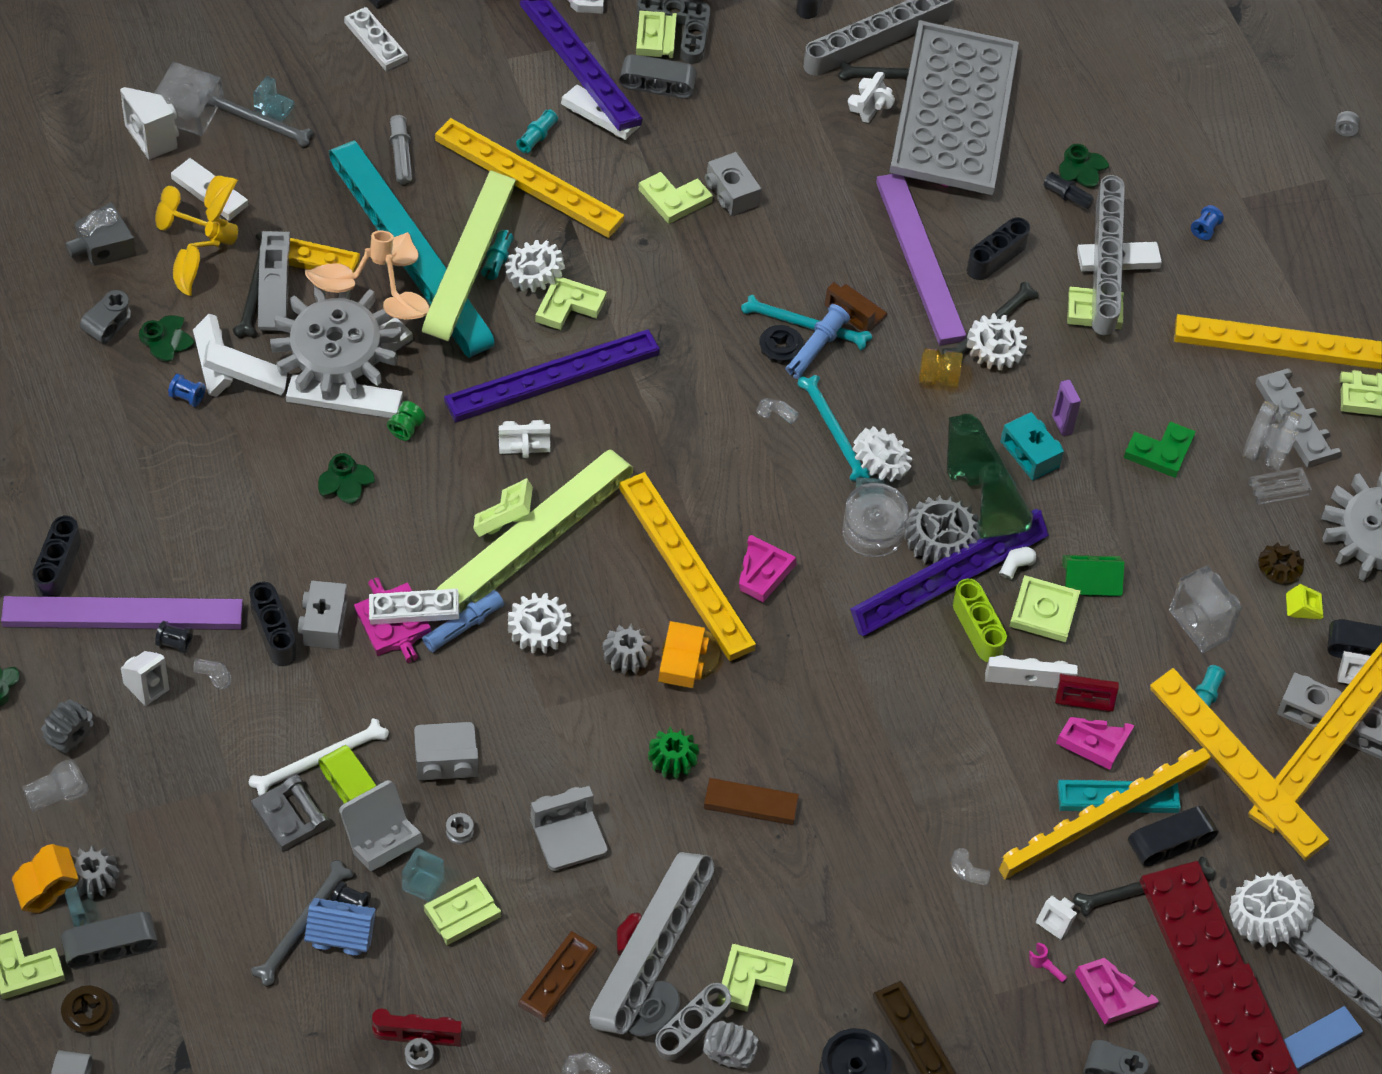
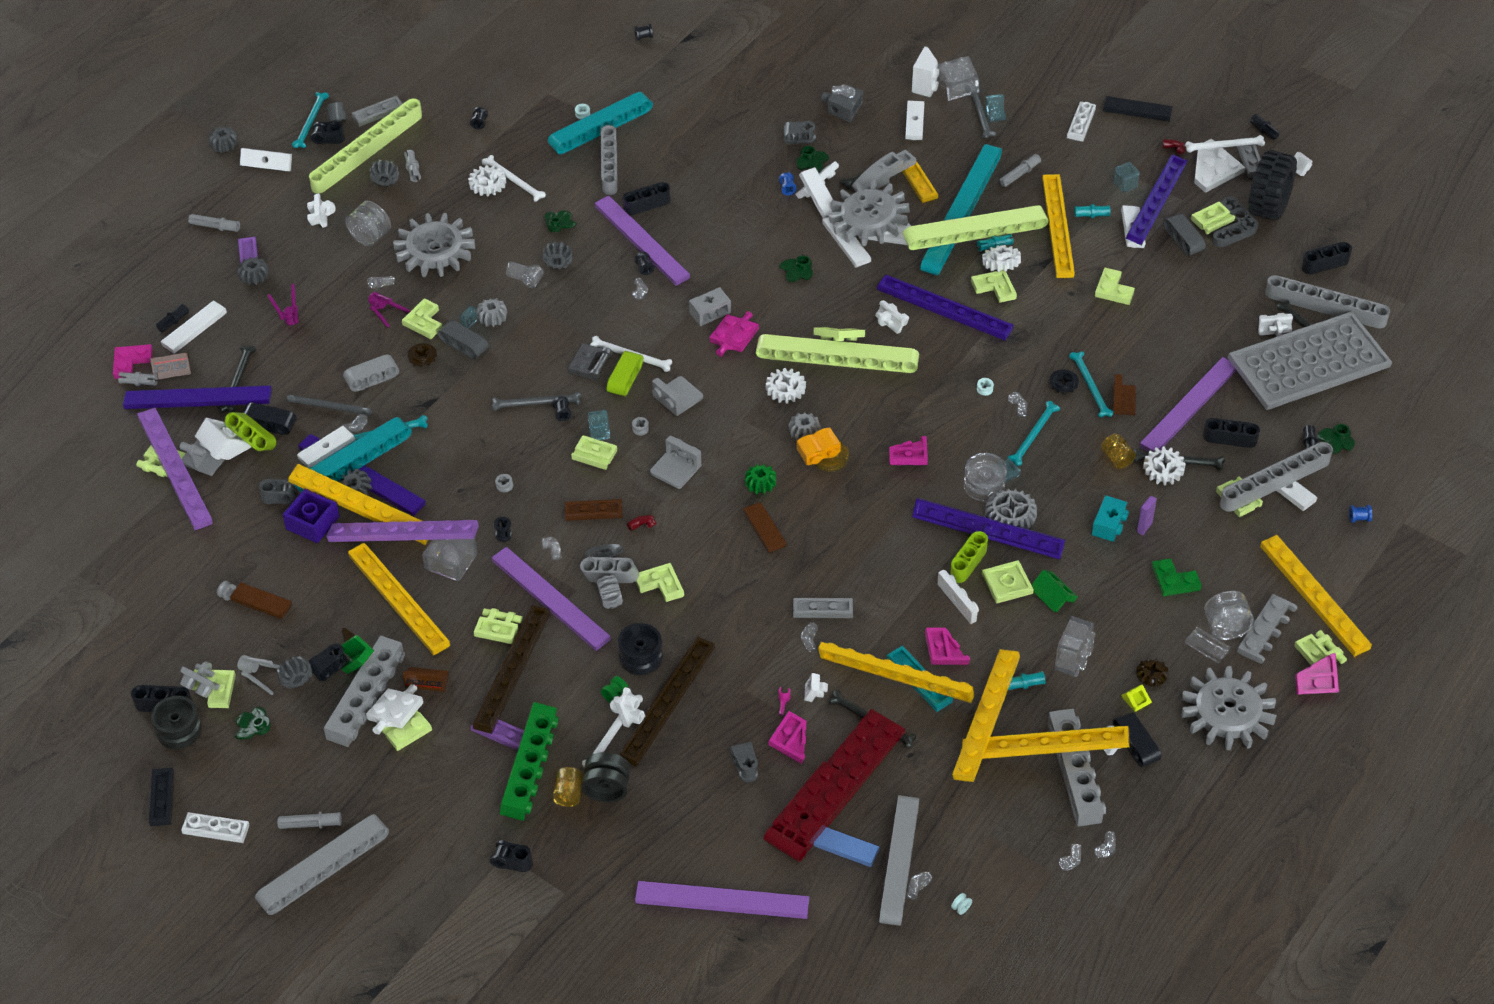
camera: 60 degrees right, 5 degrees down
(44, 878) = (470, 295): light orange brick -> none
(146, 676) = (610, 266): white slope -> none
(216, 229) = (891, 135): yellow plant -> none
(272, 612) = (685, 290): black beam -> none
(339, 926) = (541, 410): medium blue brick -> none
(378, 826) = (608, 391): light grey bracket -> none
(383, 250) = (901, 186): light nougat plant -> none
(399, 607) = (743, 332): white tile -> none
(404, 423) = (853, 268): green wheel -> none
(406, 1028) = (514, 470): dark red plate -> none
(470, 616) = (759, 358): medium blue pin -> none
(517, 62) = (1126, 177): none -> clear light blue panel
(651, 943) = (632, 528): light grey beam -> none
(687, 566) = (879, 422): yellow plate -> none
(717, 431) = (985, 382): none -> light aqua bush
(733, 184) = (1146, 302): light grey brick -> none
(824, 332) = (1087, 391): medium blue pin -> none
(882, 454) = (1032, 458): white gear -> none
(931, 824) = (822, 607): none -> light grey tile
(978, 460) = (1054, 509): clear green windscreen -> none
(1015, 559) = (1028, 552): white arm -> none
(1087, 689) = (968, 626): dark red tile -> none
(1173, 836) = (914, 713): black beam -> none
(1271, 909) = (904, 776): white gear -> none

